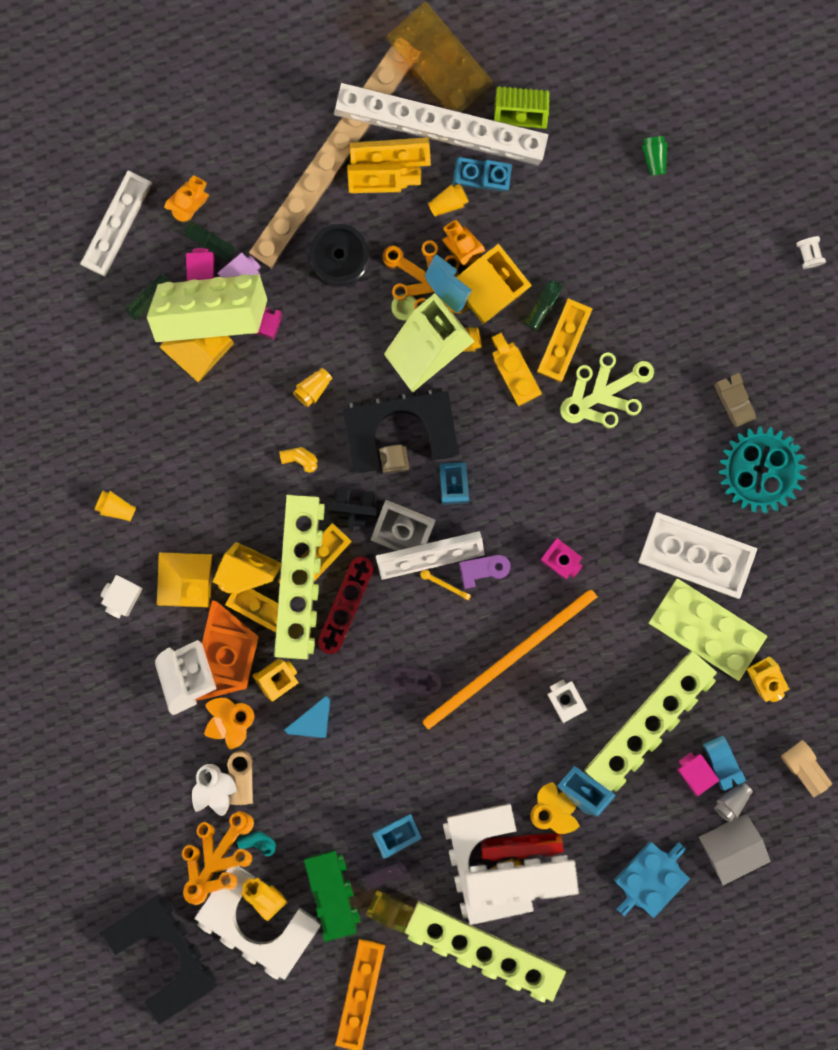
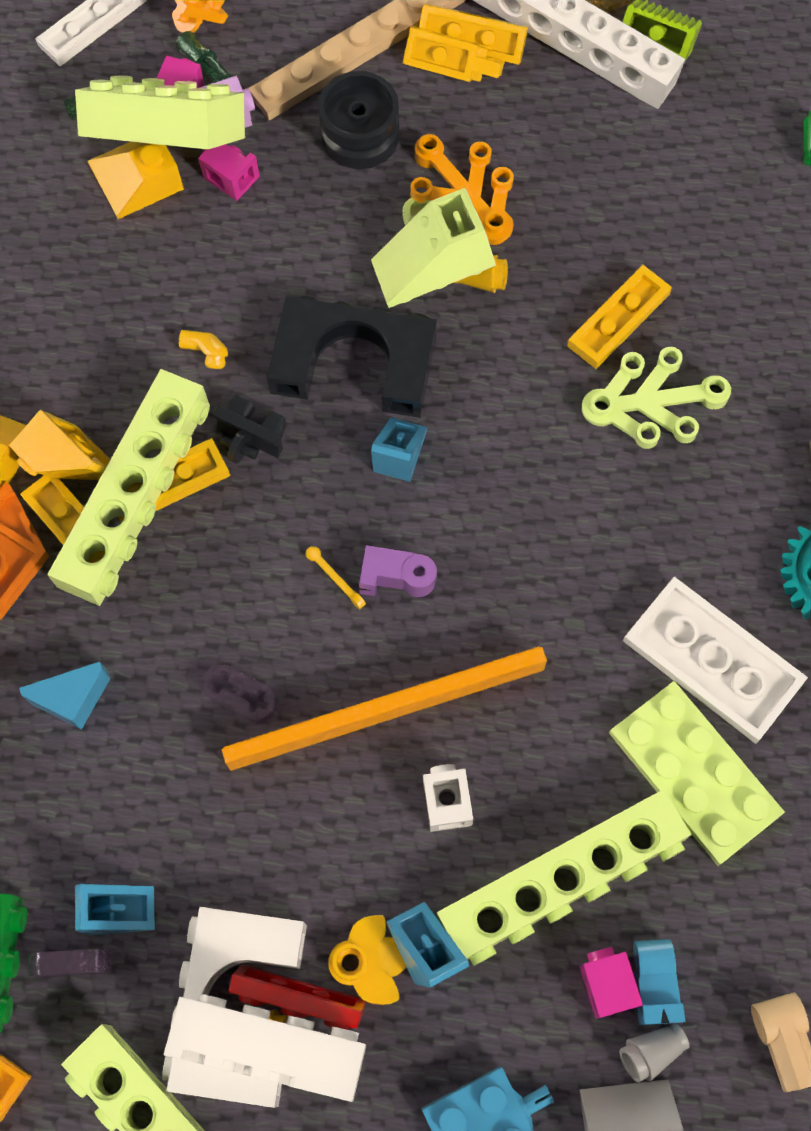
camera: 25 degrees right, 15 degrees down
(286, 680) = (28, 613): yellow brick -> none
(312, 387) = (259, 266): yellow cone -> none
(343, 604) = (180, 551): dark red beam -> none
(390, 911) = (55, 1023): clear yellow brick -> none
(394, 459) = (326, 384): dark tan leg -> none
(401, 527) = (306, 478): light grey slope -> none
(430, 555) = (327, 526): white tile -> none
(444, 283) = (487, 190): dark azure slope -> none
(448, 200) = (526, 107): yellow cone -> none
(462, 243) = (525, 158): light orange hips -> none
(482, 175) = (587, 98): dark azure slope -> none
(493, 283) = (545, 210): yellow slope -> none
(514, 371) = (537, 334): yellow hinge -> none
(543, 305) = (605, 266): clear green axle -> none
(551, 559) = (512, 611): dark pink brick -> none
(763, 674) = (757, 868): yellow brick -> none

